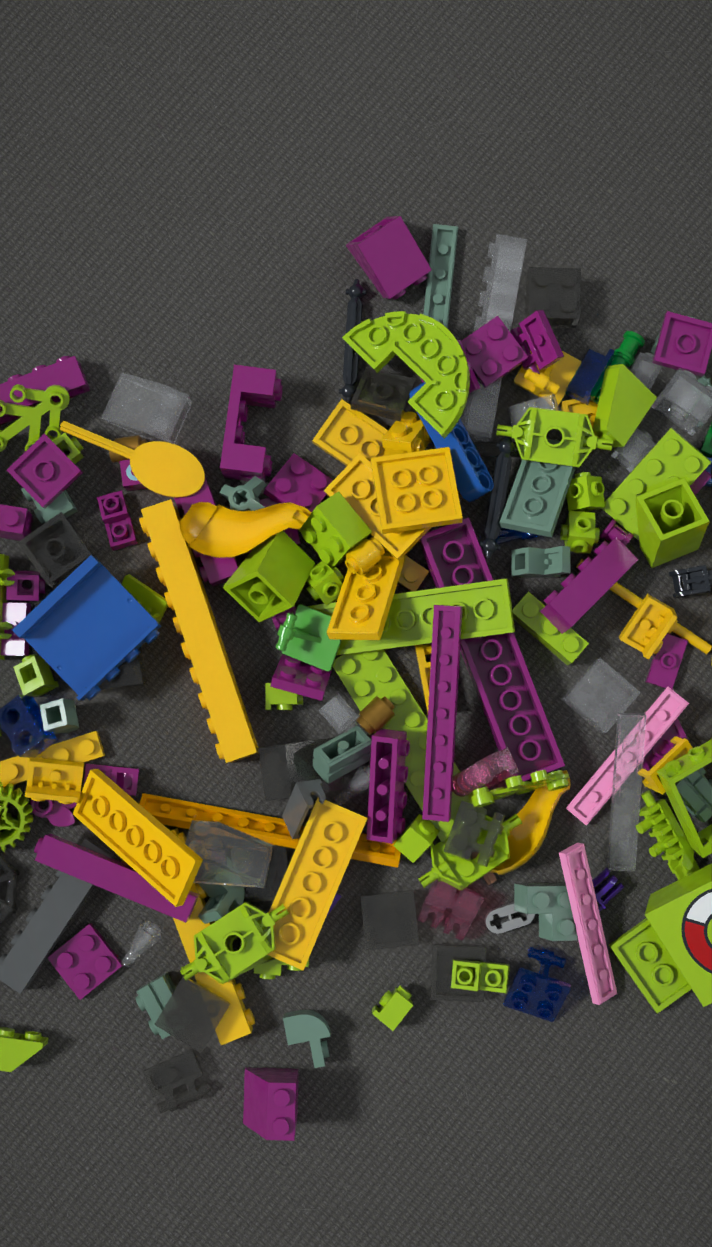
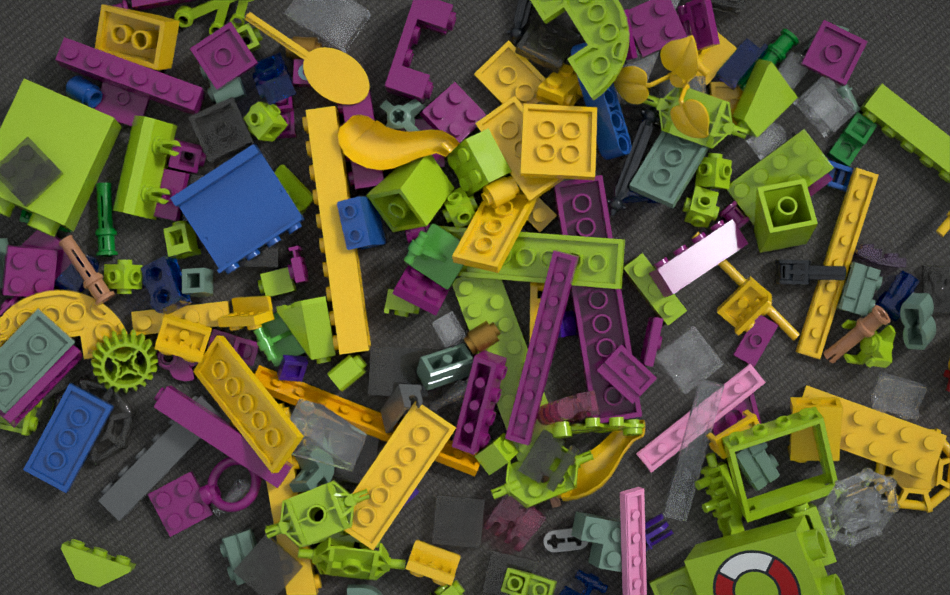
camera: 15 degrees right, 5 degrees up
(100, 531) = (265, 121): none -> lime brick
(101, 486) = (273, 79): none -> clear blue brick
(116, 942) = (211, 493): none -> magenta piece
(120, 737) = (248, 312): none -> yellow bracket
(145, 700) = (276, 283): none -> lime brick
(163, 755) = (277, 340): none -> bright green plate
(164, 678) = (298, 268): none -> magenta plate
(178, 789) = (292, 368): none -> dark purple plate
(189, 740) = (311, 327): none -> lime slope
(222, 618) = (360, 223): none -> blue panel
(238, 780) = (347, 371): none -> lime brick
(281, 988) = (351, 561): none -> lime plate
(371, 971) = (433, 563): none -> yellow bracket
(465, 684) = (568, 325): none -> dark purple plate
(530, 373) = (682, 59): none -> yellow plant
(539, 723) = (626, 374): none -> magenta plate
(540, 562) = (659, 227): sand green brick -> none
(557, 683) = (652, 341): none -> magenta plate

